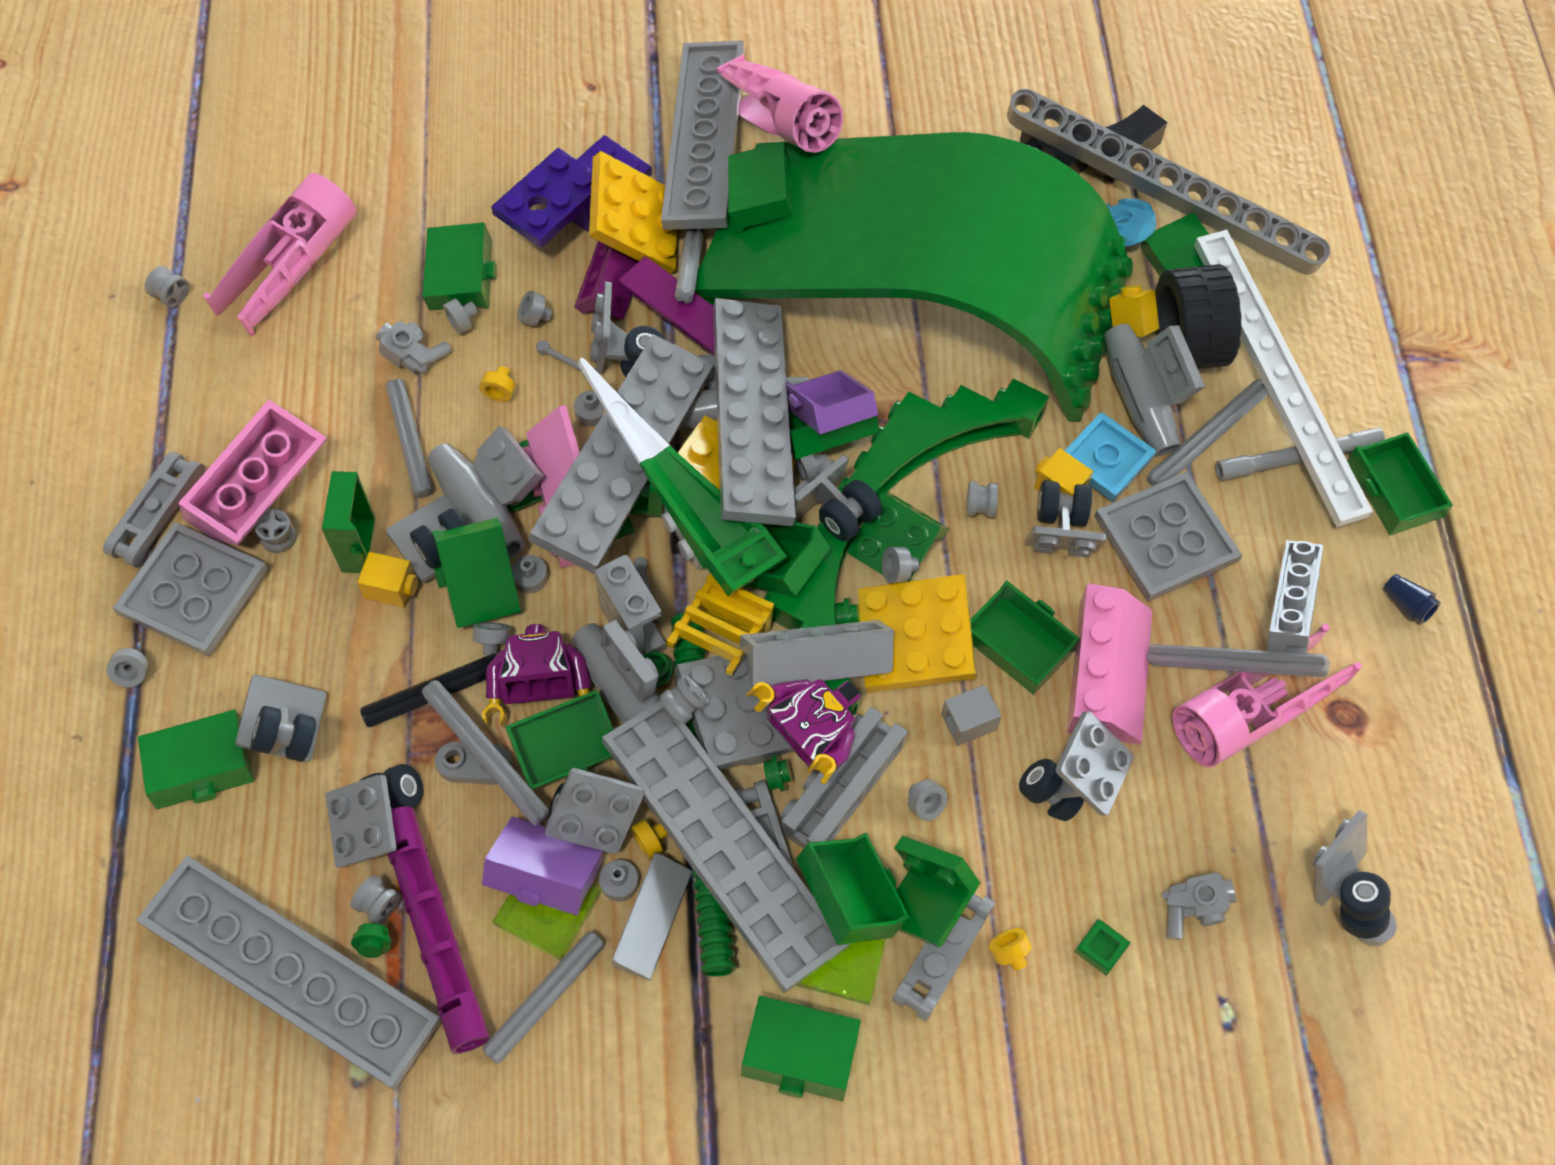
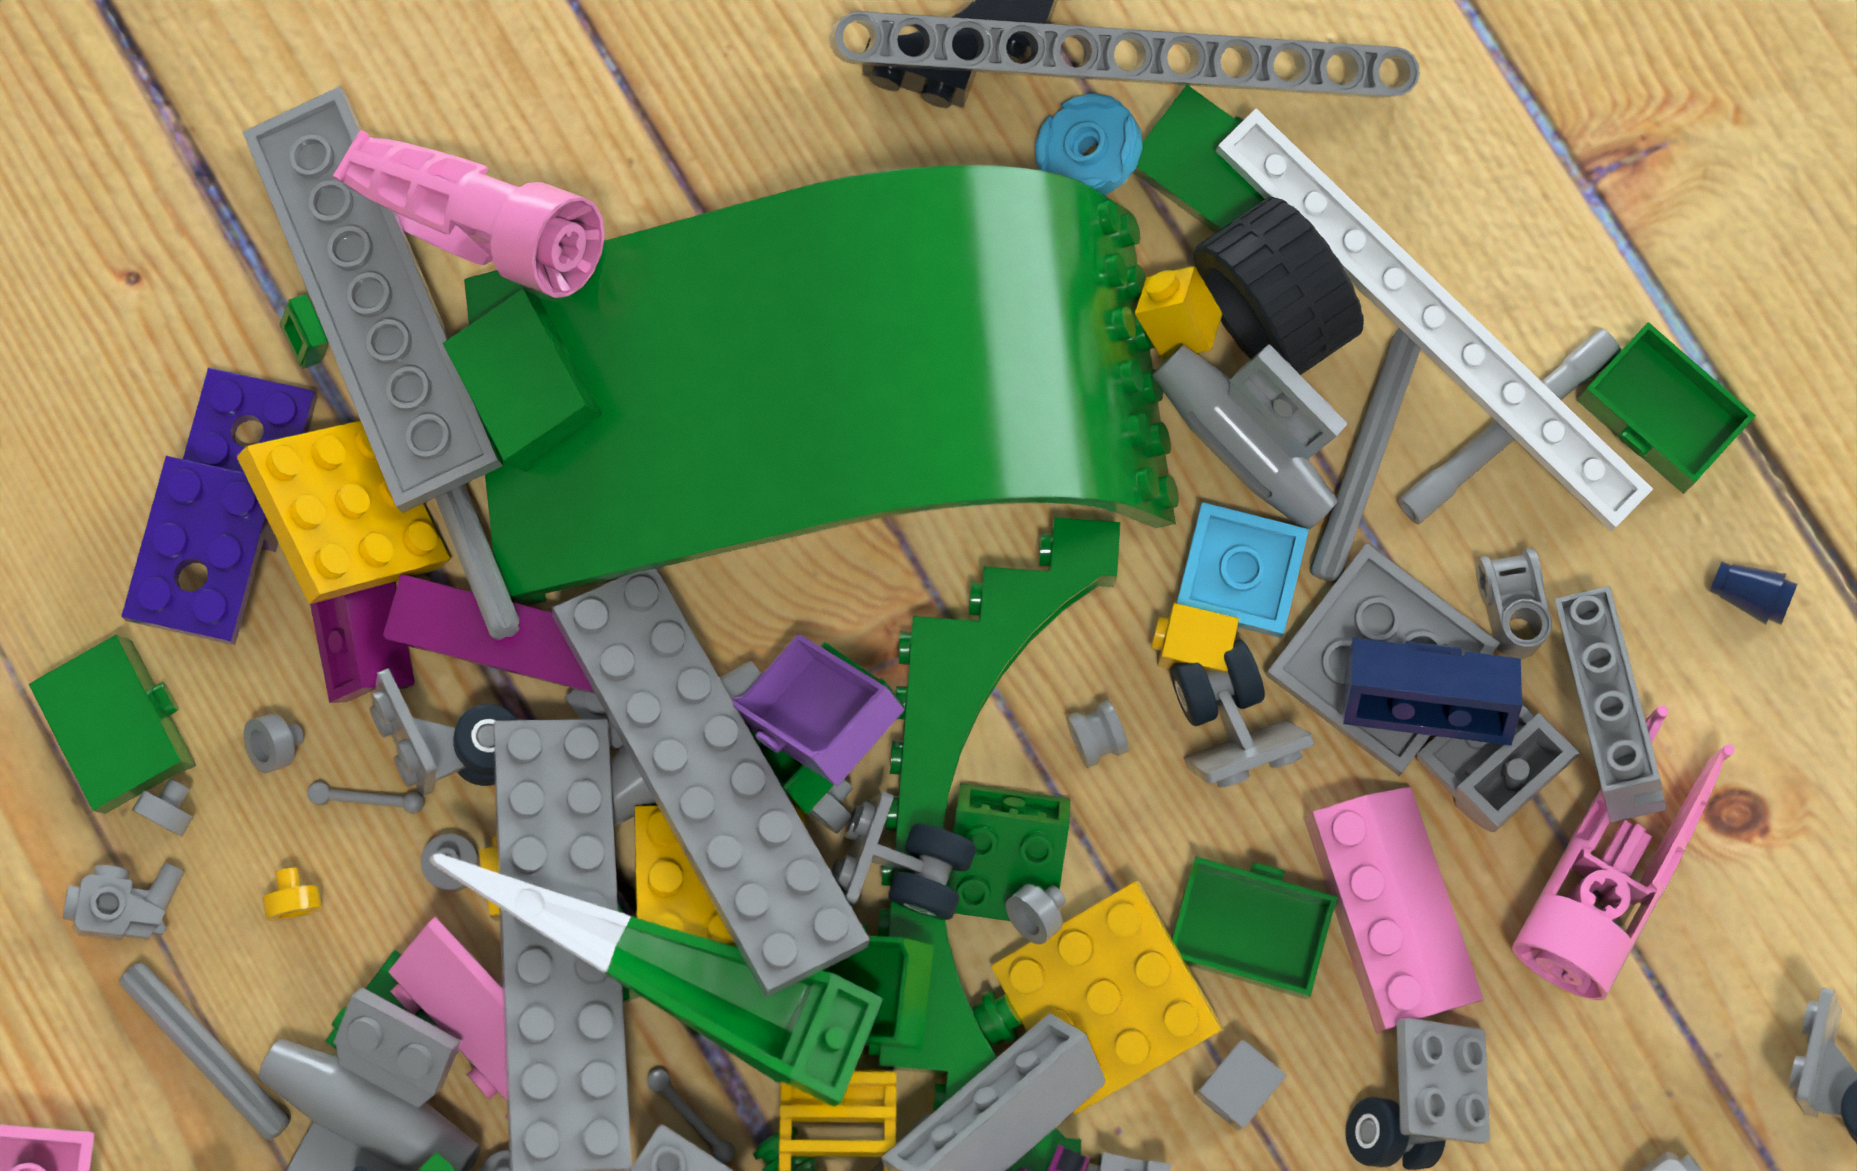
camera: 30 degrees left, 15 degrees up
(661, 137) = (304, 331): none -> green tile
(1189, 552) = (1432, 691): none -> dark blue piece
(1211, 611) = (1498, 779): none -> light grey brick
(1239, 660) = (1570, 835): light grey axle -> none
(1261, 536) = (1514, 591): none -> light grey piece

